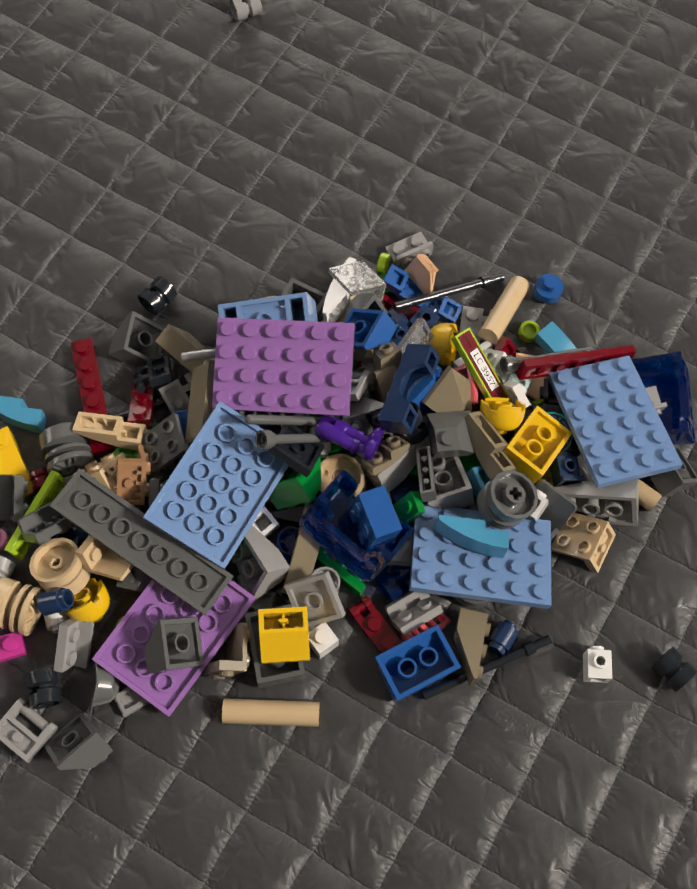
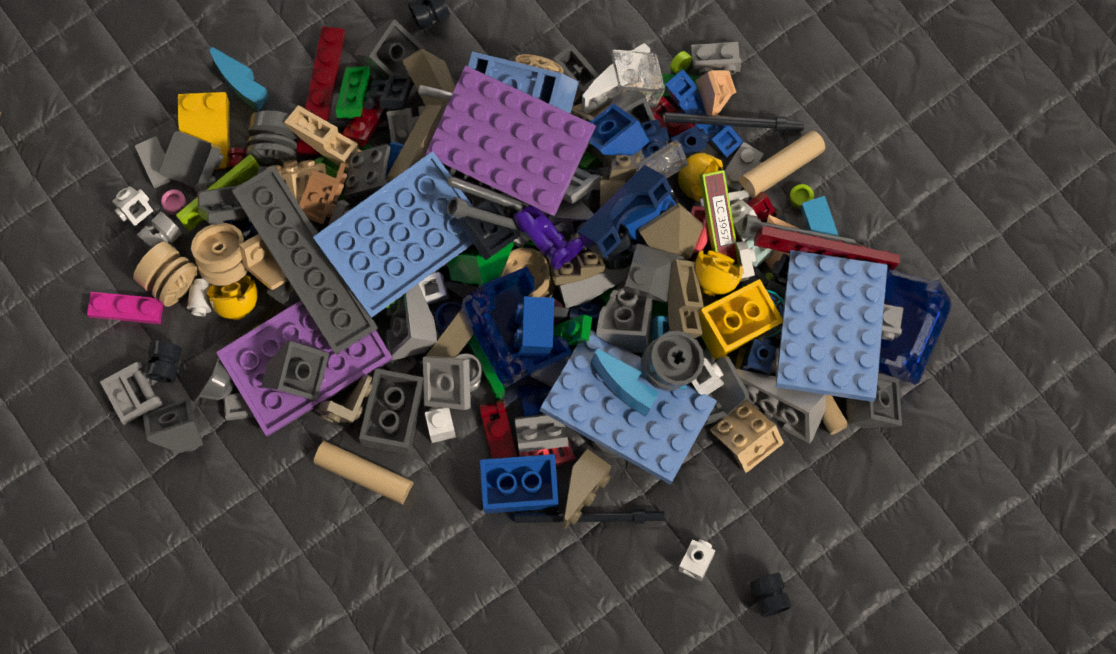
camera: 30 degrees right, 5 degrees up
(55, 601) = (203, 284): dark blue brick -> none
(73, 645) = (205, 332): light grey bracket -> none
(121, 385) = (353, 92): none -> green plate
(284, 635) = (401, 402): yellow slope -> none
(426, 473) = (607, 303): dark grey piece -> none
(502, 637) = (616, 494): dark blue brick -> none
(548, 288) = (844, 158): blue piece -> none

